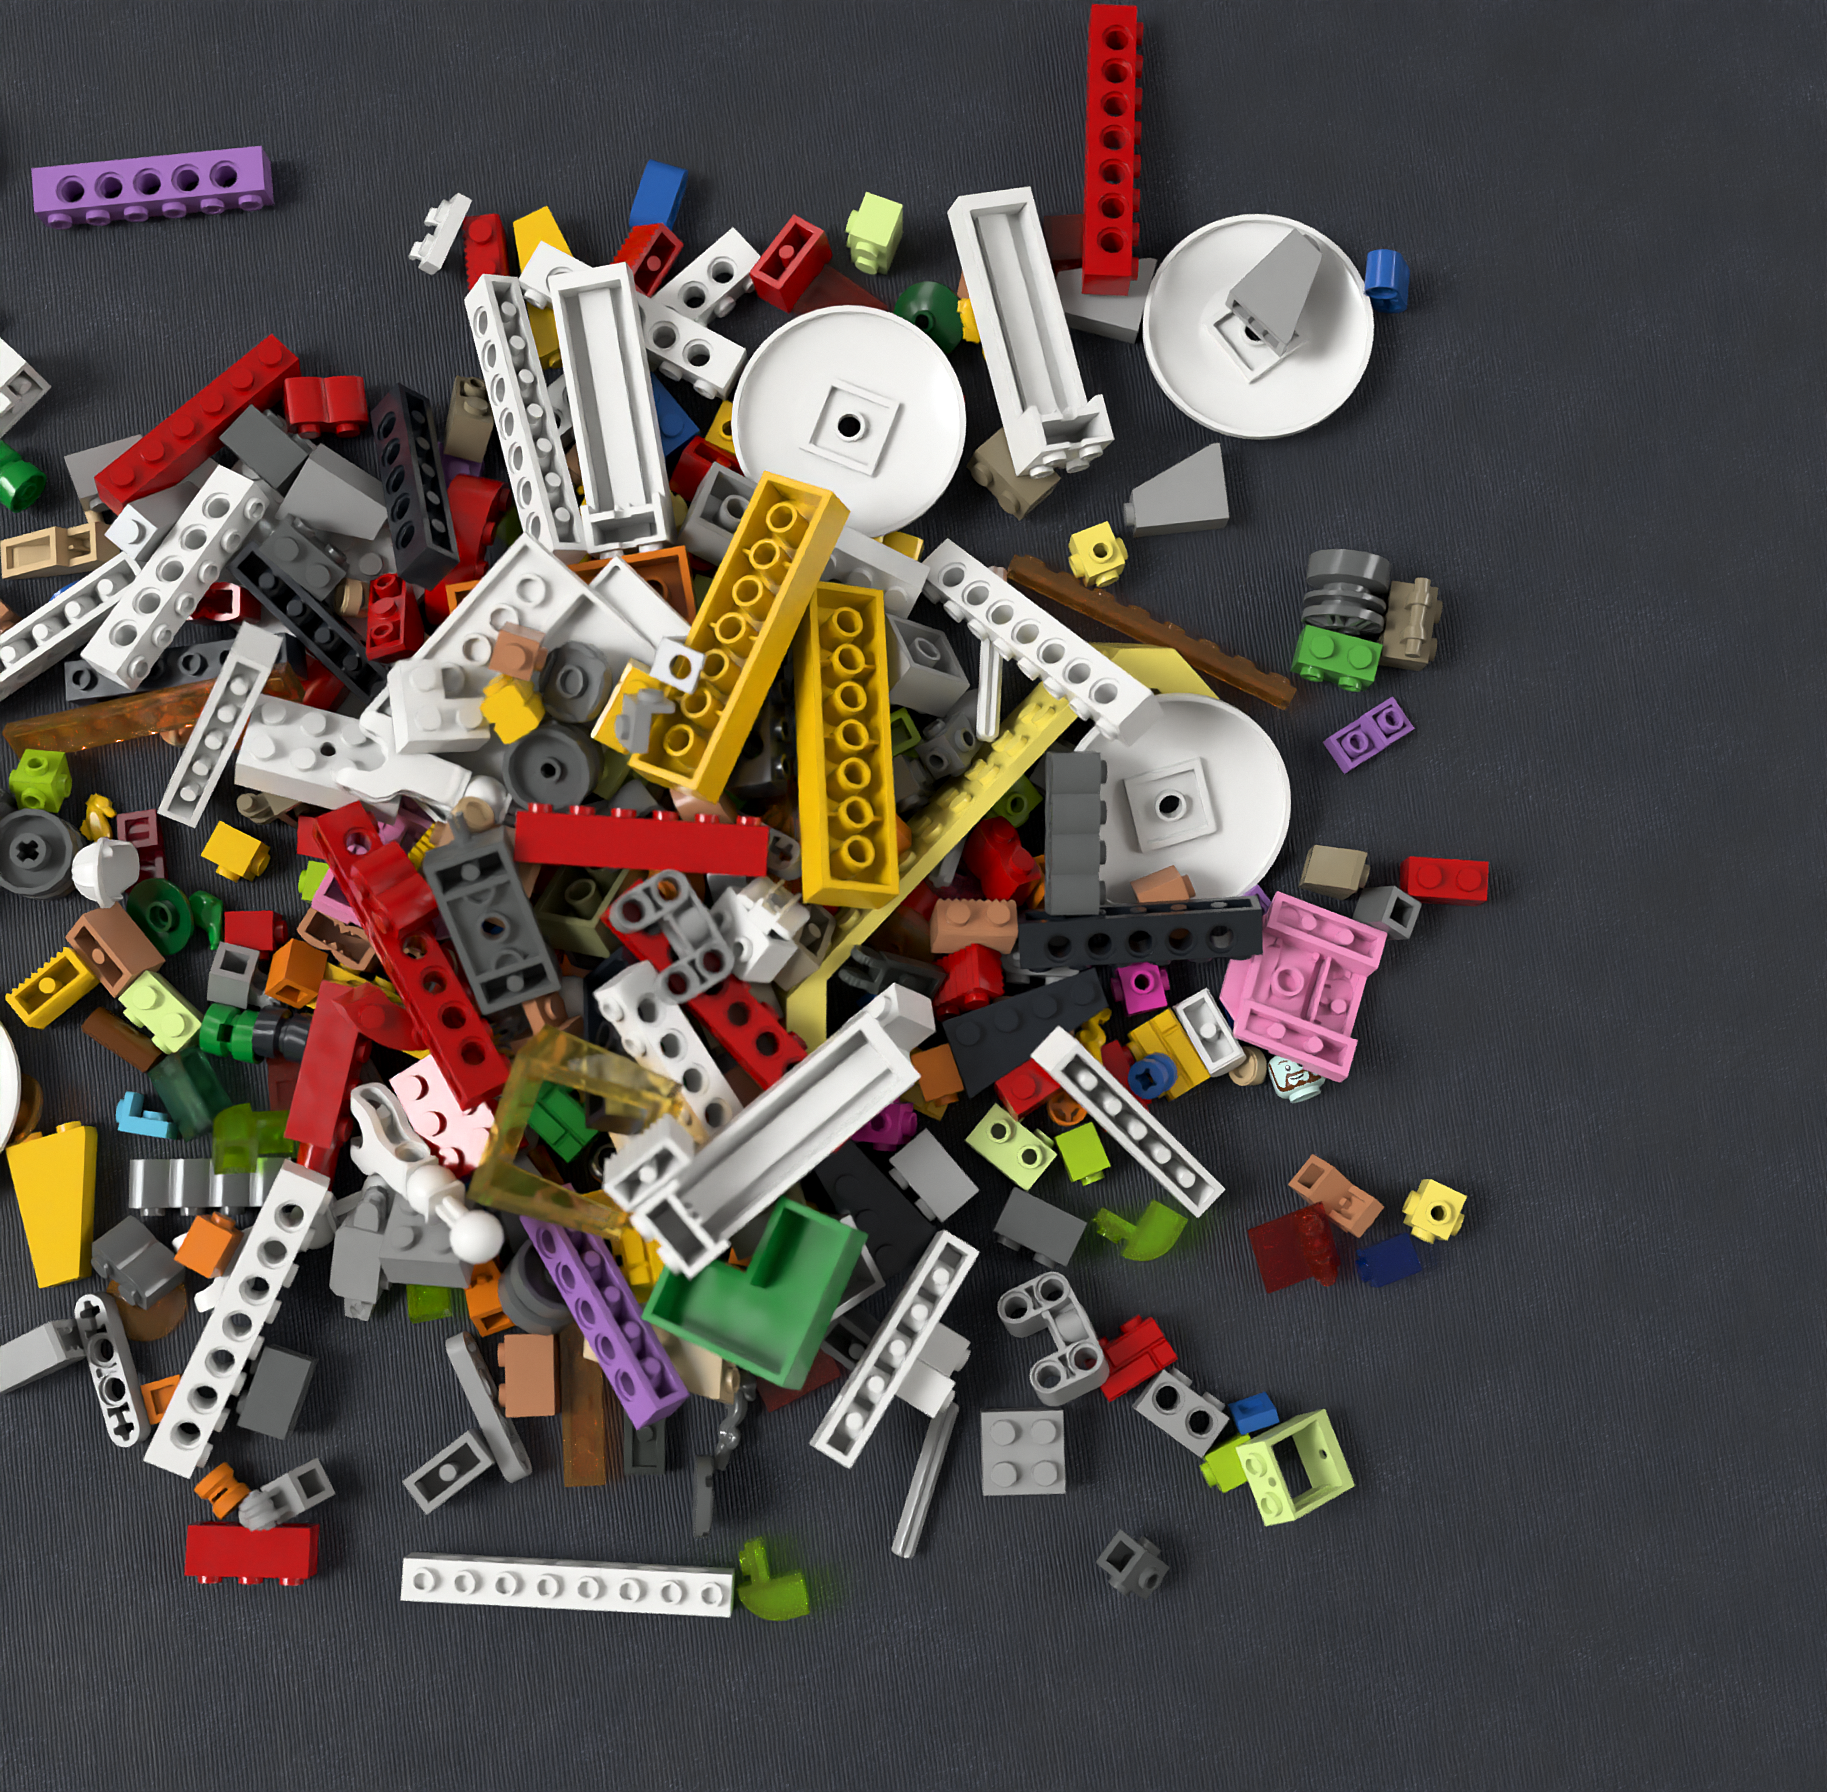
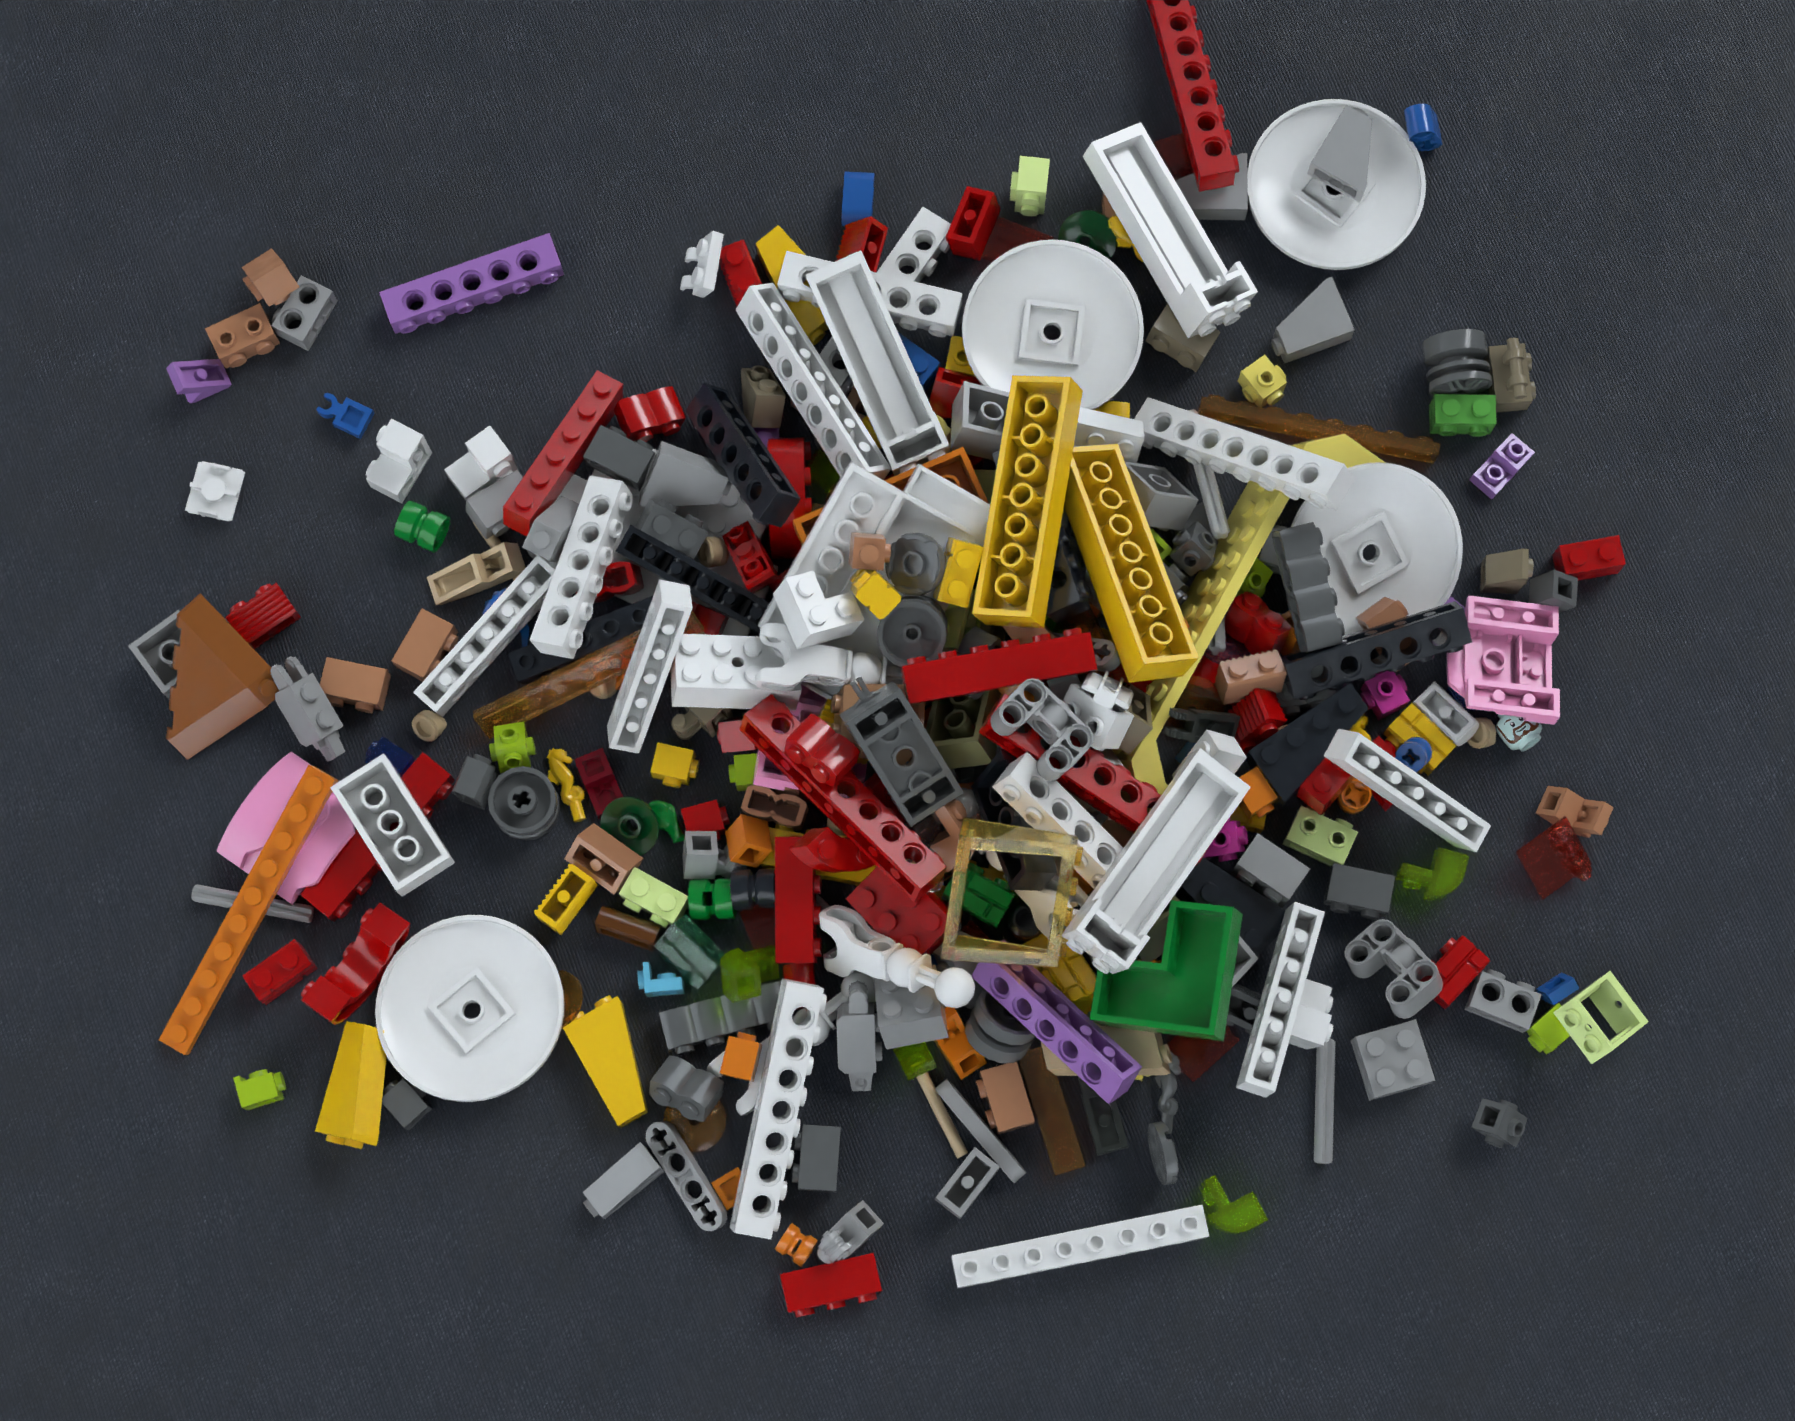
camera: 10 degrees left, 5 degrees down
(102, 416) = (482, 465): none -> white brick
(105, 870) = (581, 800): white piece -> none
(449, 1377) = (942, 1115): none -> tan bar
(476, 812) = (869, 677): tan tile -> none
(634, 723) = (972, 578): light grey bracket -> none
(648, 1162) = (1073, 894): white brick -> none
(665, 658) = (979, 529): bracket -> none
(1082, 1154) = (1375, 828): lime brick -> none
(1387, 1260) = (1625, 850): clear blue brick -> none
(1447, 1209) = (1650, 804): light yellow brick -> none

